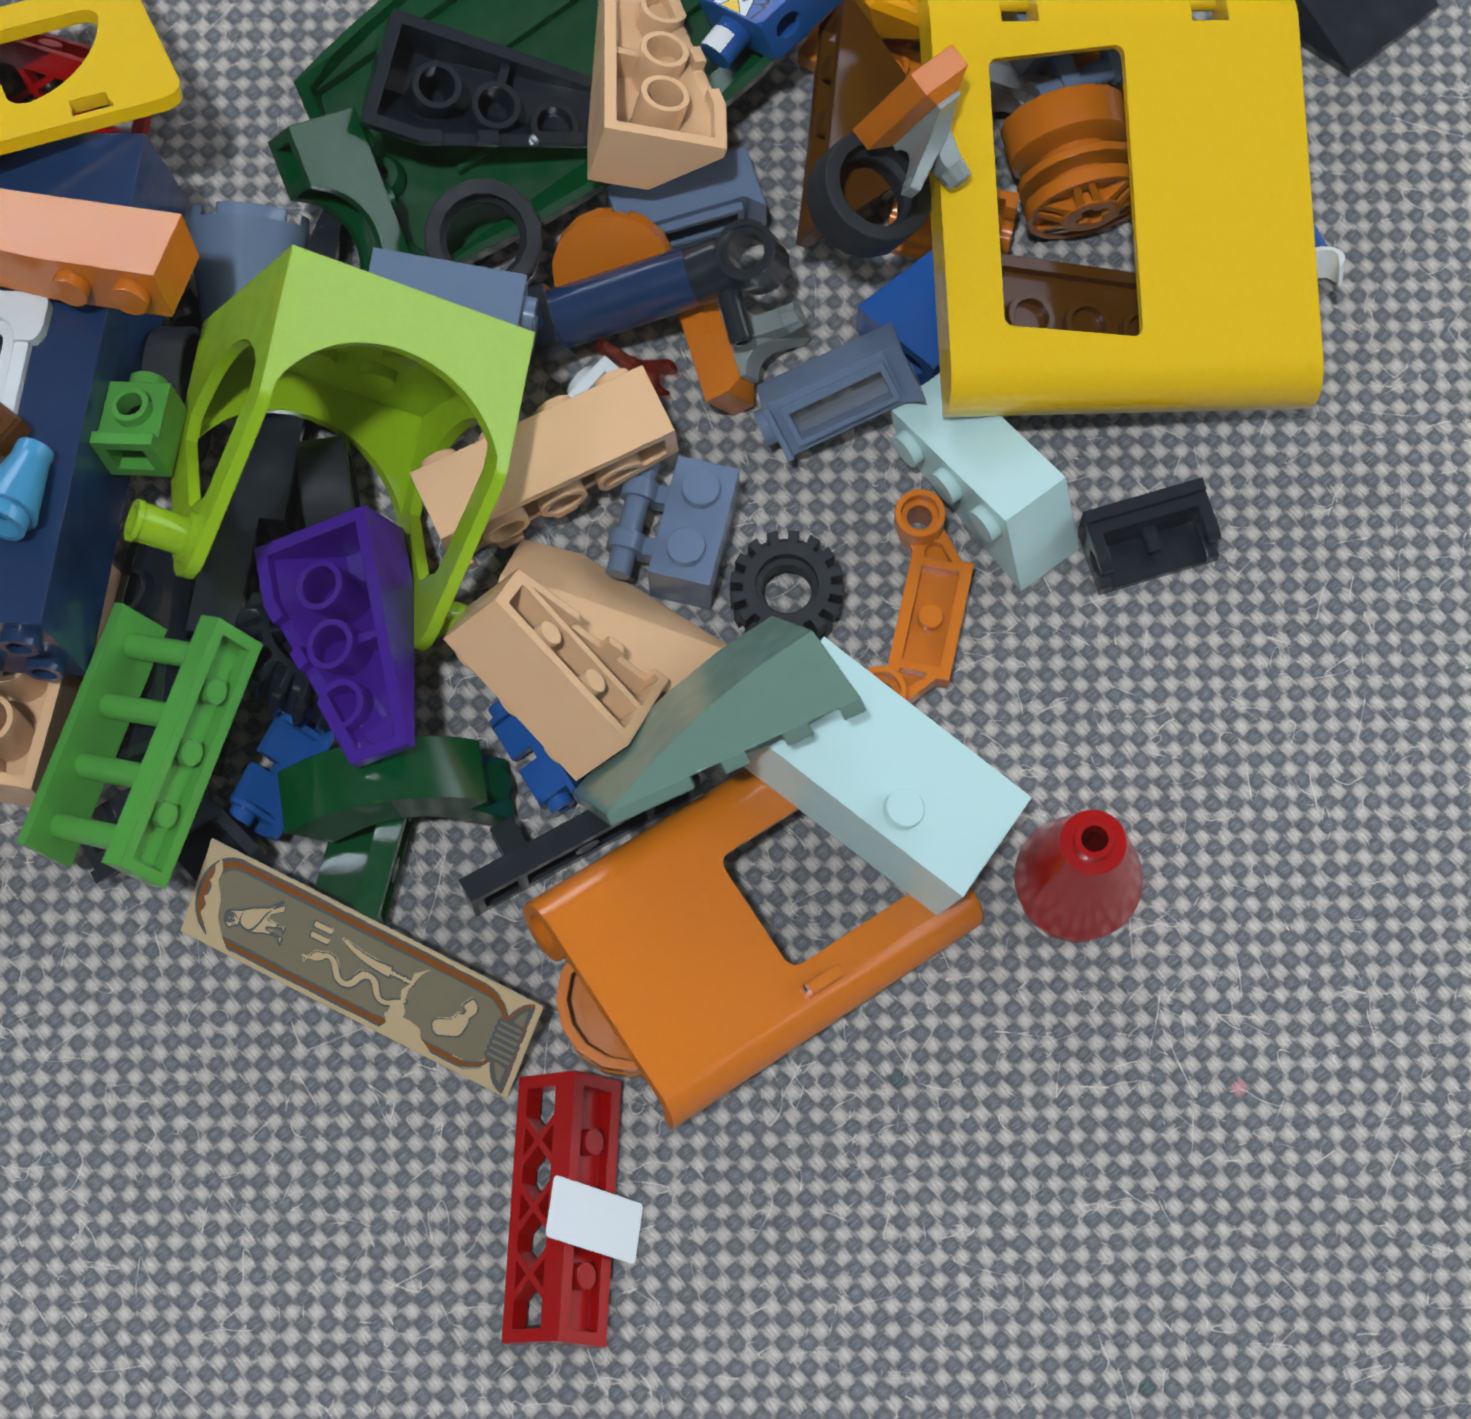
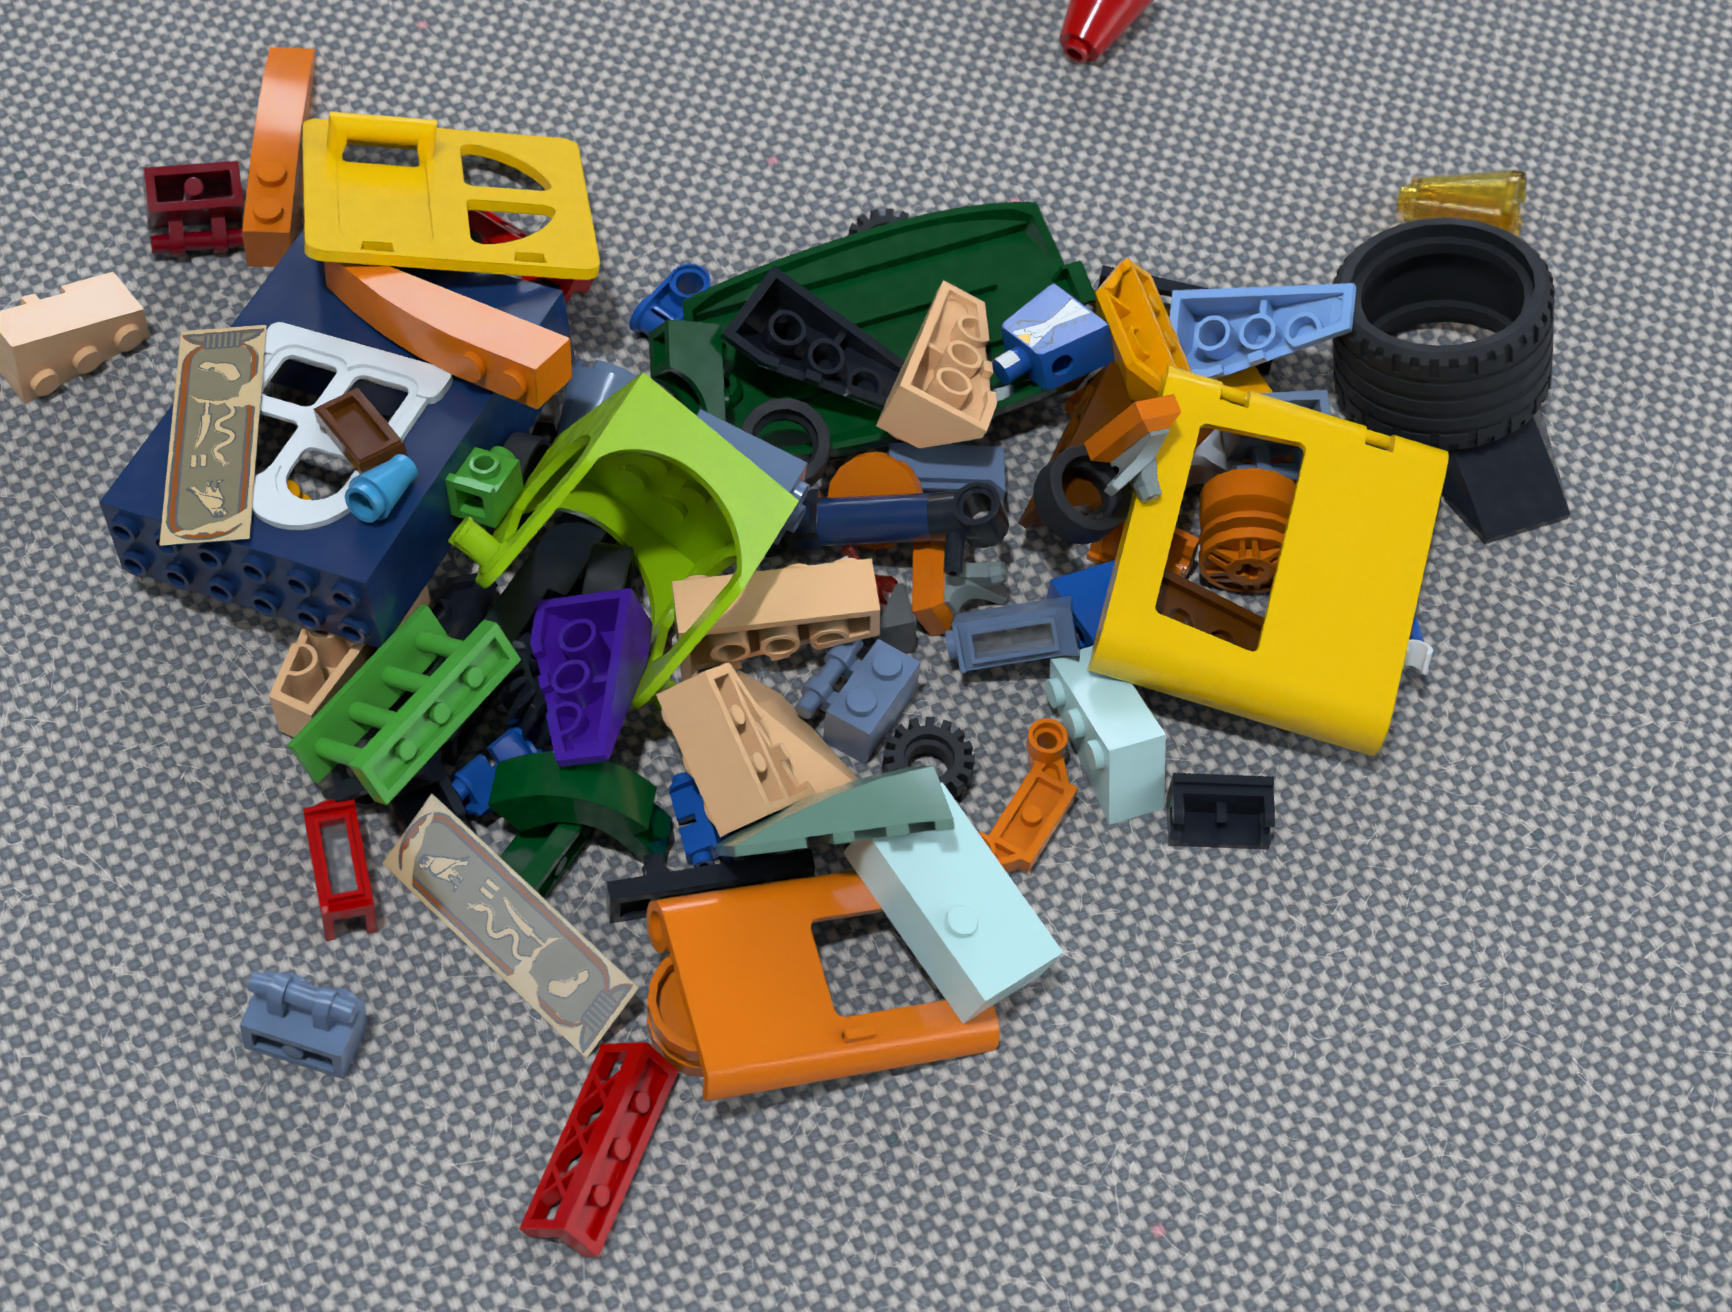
camera: 10 degrees right, 15 degrees down
(131, 959) = (339, 864): none -> red window
(159, 1174) = (303, 1022): none -> sand blue brick
(270, 95) = (667, 298): none -> blue piece
(594, 1219) = (622, 1156): white sticker -> none
(692, 418) = (897, 621): none -> dark grey slope
(1079, 876) = (1085, 1029): red cone -> none

